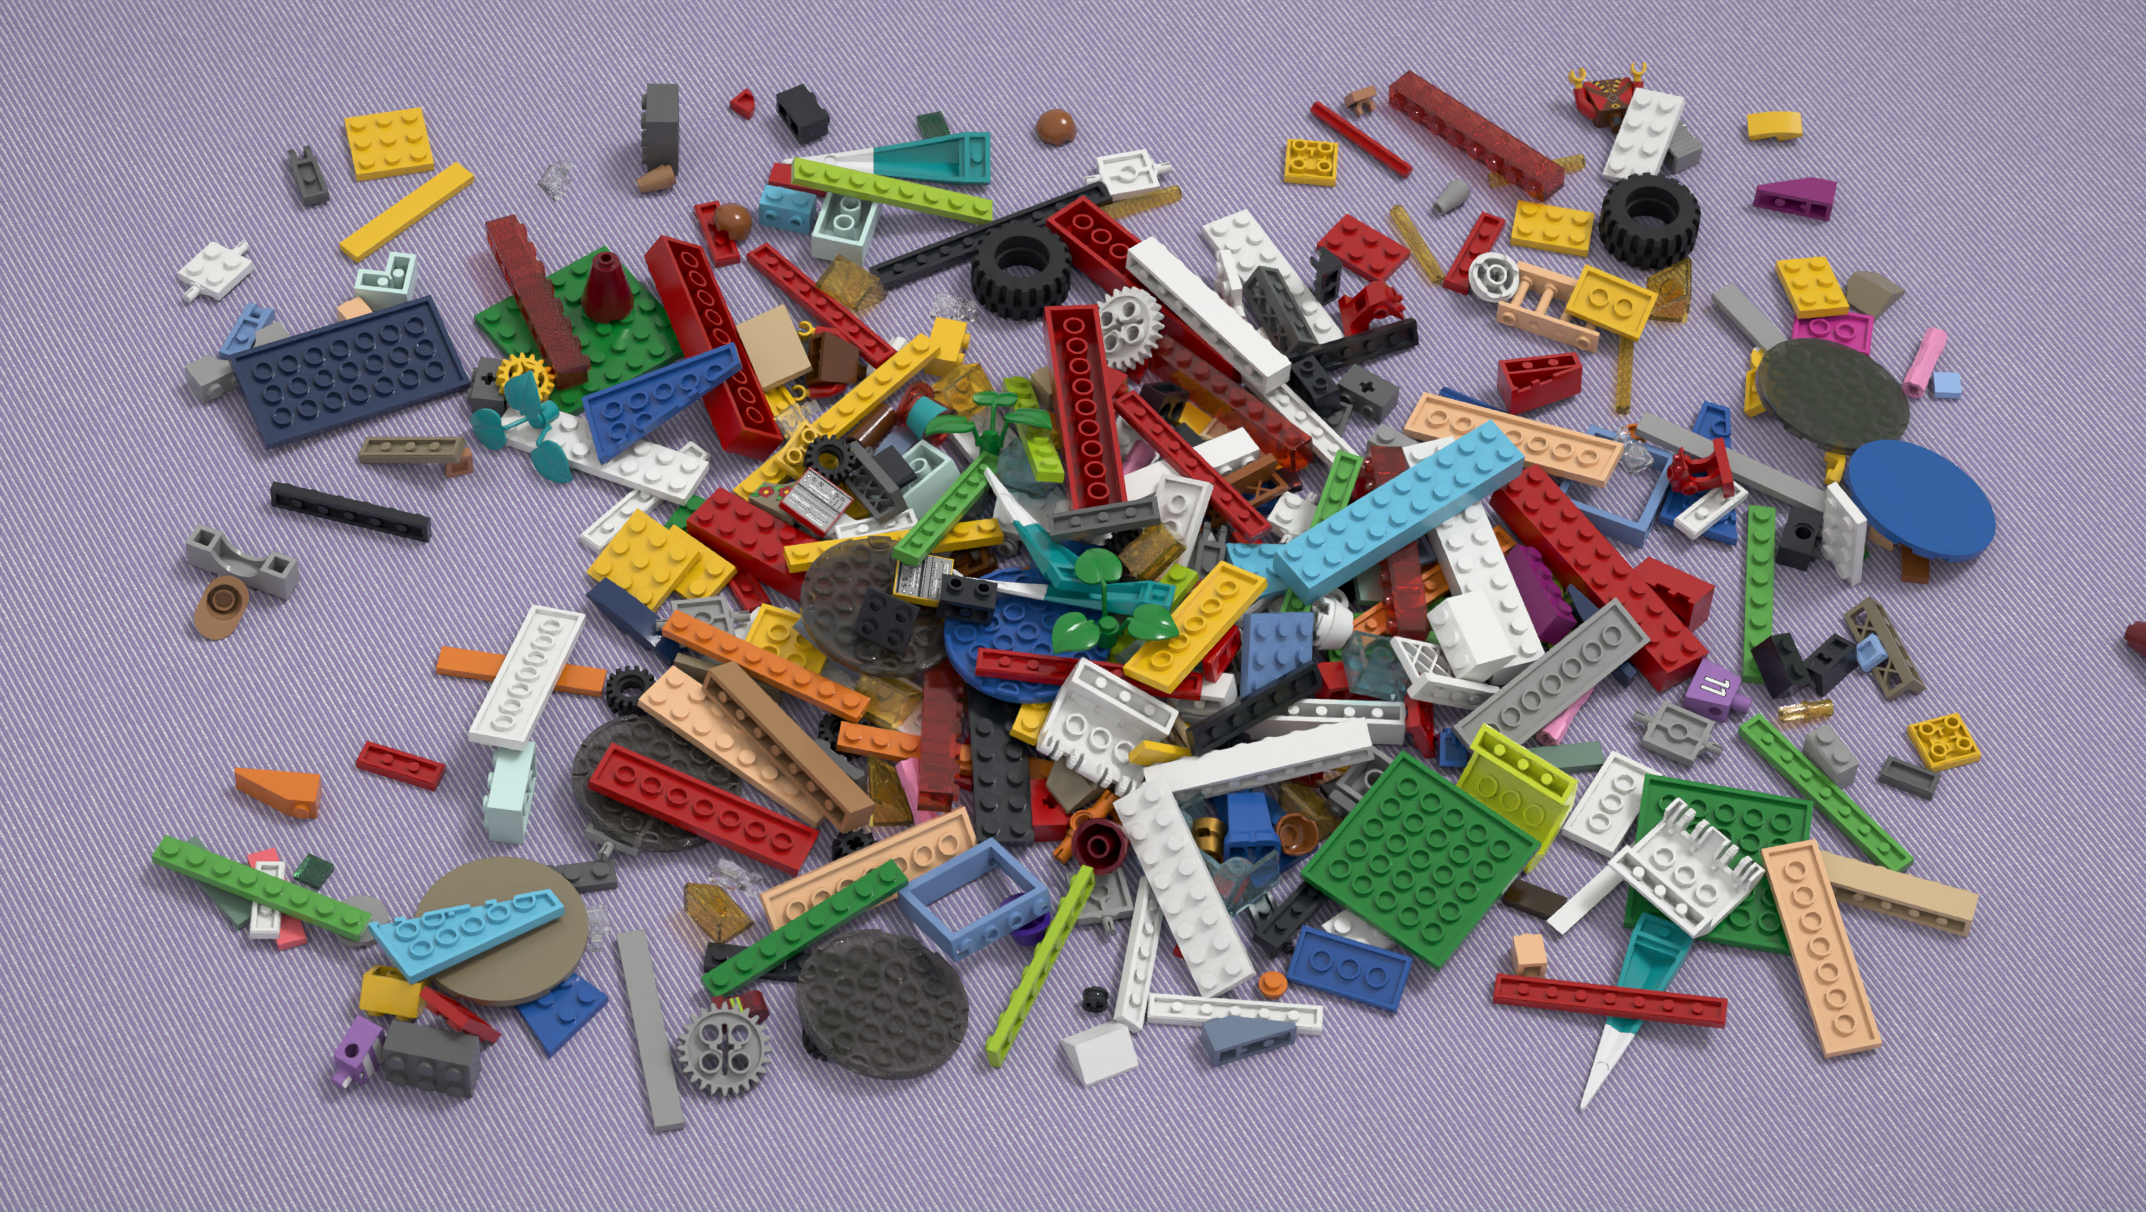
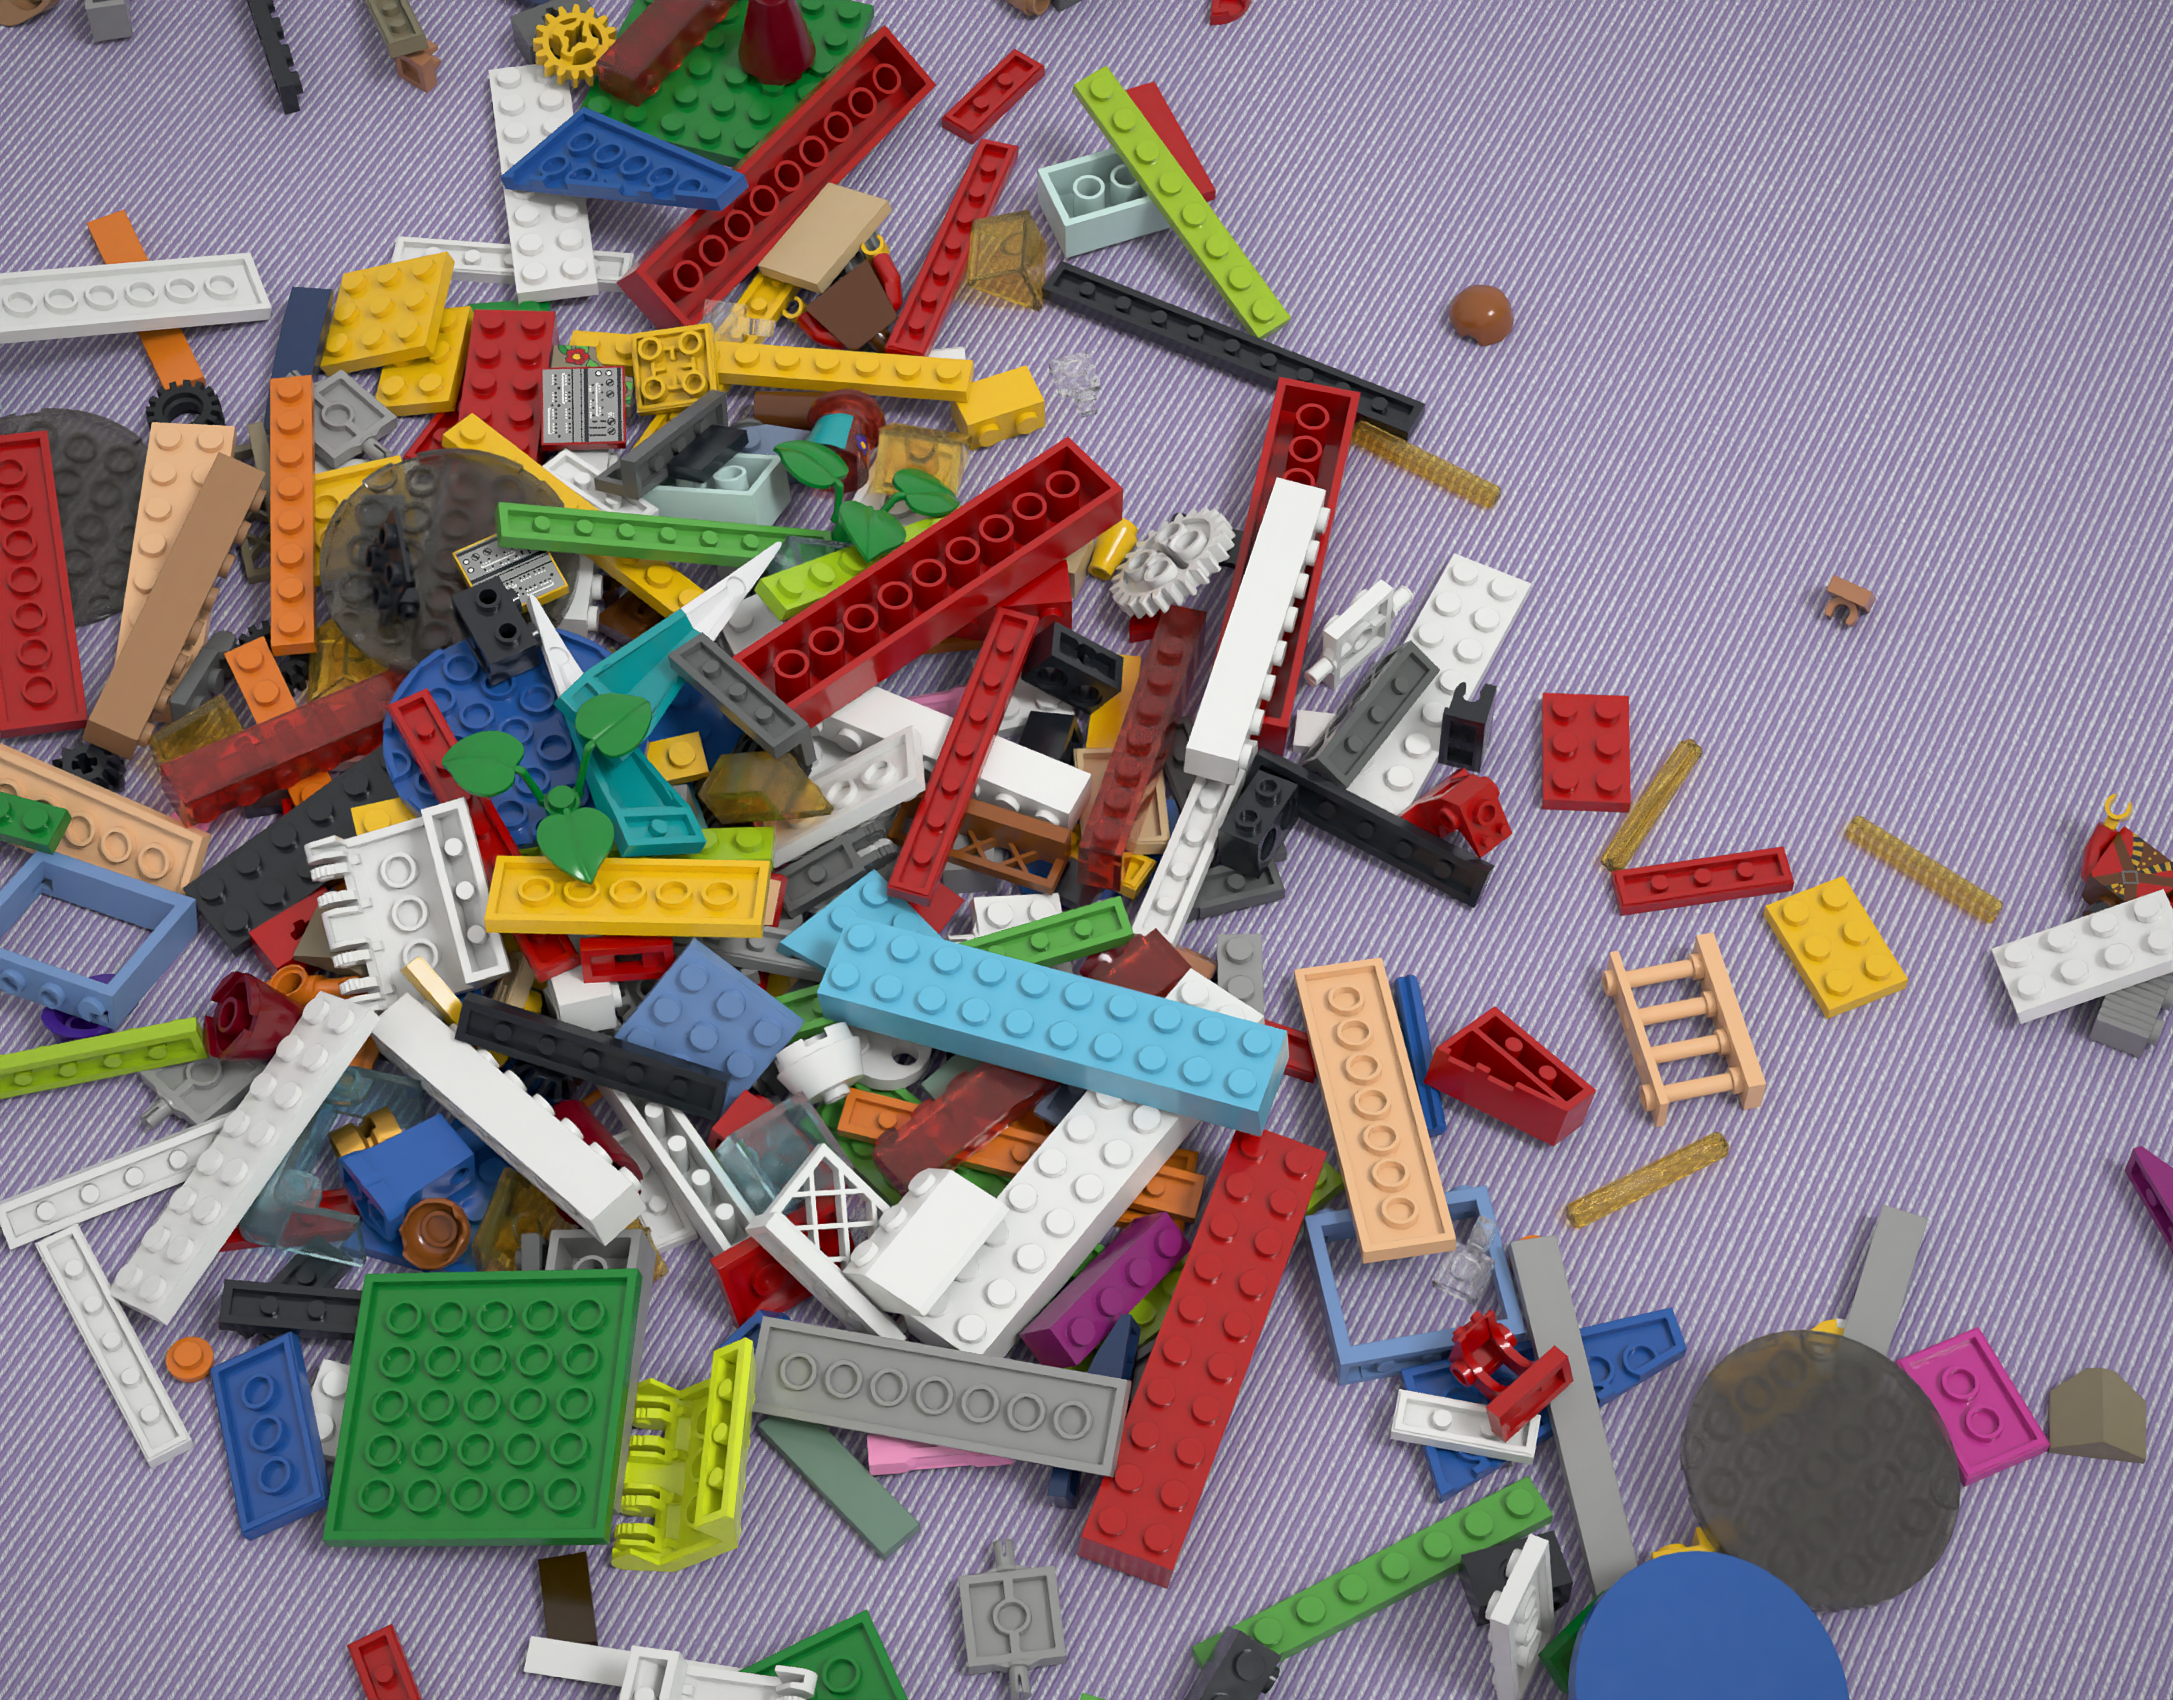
camera: 60 degrees right, 5 degrees up
(523, 395) = (524, 87): teal plant -> none
(734, 219) = (1014, 95): dark orange hair -> none
(787, 209) = (1074, 127): medium azure brick -> none
(802, 114) = (1250, 59): black brick -> none
(836, 448) = (654, 364): black tyre -> none
(932, 125) = (1356, 207): clear green tile -> none
(944, 159) = (1308, 231): teal plate -> none
(1022, 246) = (1185, 366): black tyre -> none
(1095, 999) = (21, 1167): black bush -> none
(1128, 174) = (1469, 428): white plate -> none
(1241, 1037) = (54, 1362): sand blue slope -> none
(1311, 162) = (1688, 609): yellow tile -> none
(1361, 139) = (1780, 641): red axle -> none
(1368, 393) = (1320, 895): dark grey brick -> none
(1452, 196) = (1773, 796): light grey cone -> none
(1476, 136) = (1900, 762): clear red brick -> none
(1494, 277) = (1653, 919): white cone -> none
(1528, 955) = (449, 1648): light nougat brick -> none
(1608, 805) = (785, 1600): white plate -> none
(1611, 303) = (1729, 1084): yellow plate -> none
(1652, 197) = (1952, 1002): black tyre -> none
(1674, 292) = (1843, 1157): clear yellow slope -> none
(1683, 593) = (1260, 1465): red wedge -> none
(1715, 693) = (1122, 1625): medium lavender torso -> none
(1811, 287) = (2024, 1329): yellow plate -> none
(1924, 363) = (1983, 1569): bright pink axle -> none
(1946, 385) = (2007, 1619): light blue tile -> none

